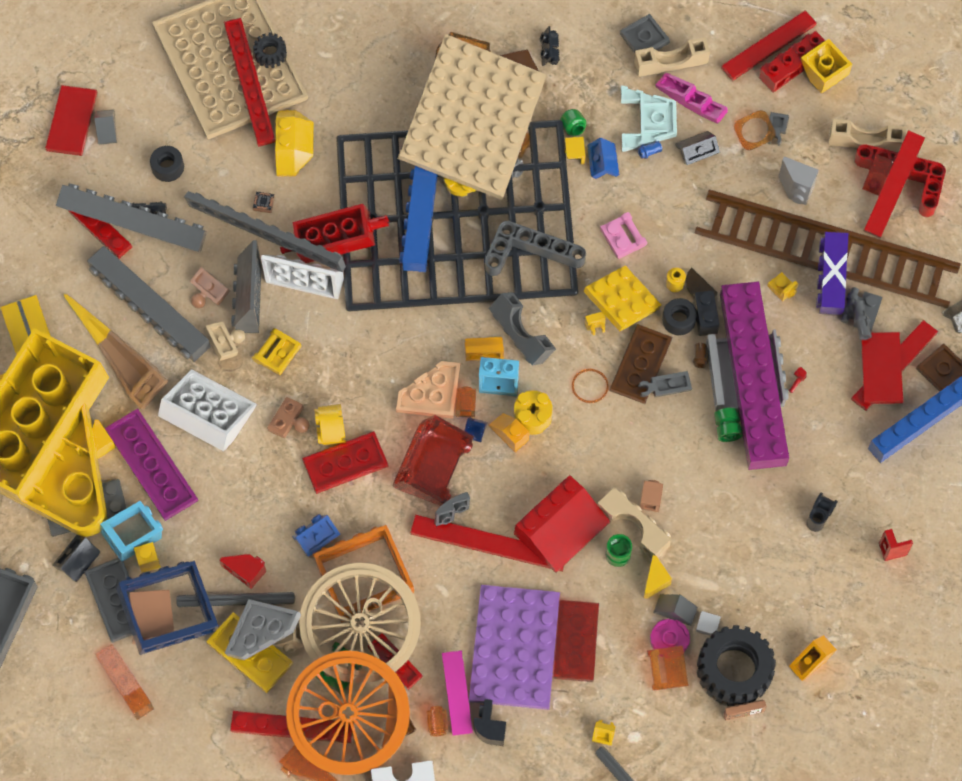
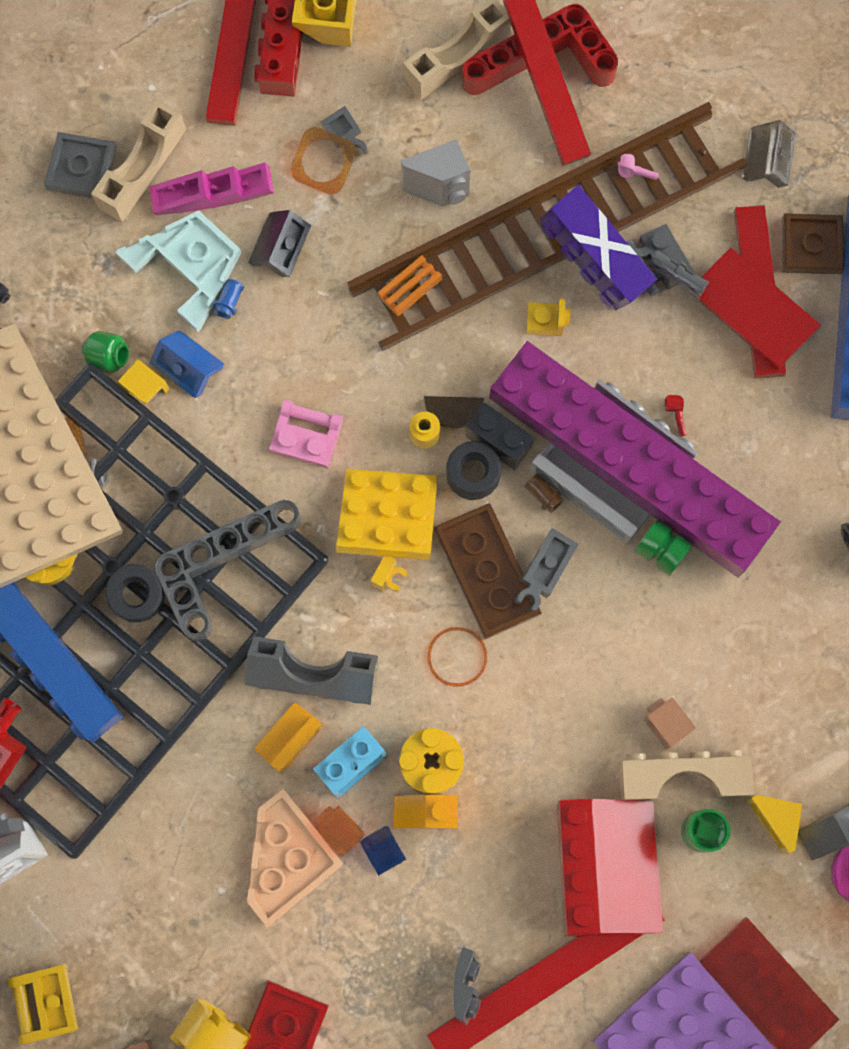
camera: 45 degrees left, 10 degrees up
(432, 460) = (378, 951): clear red windscreen -> none
(478, 216) = (123, 577): none -> black tyre
(734, 213) = (427, 269): none -> orange tile
(877, 174) = (517, 83): clear red slope -> none
(890, 257) = (627, 168): none -> bright pink hand

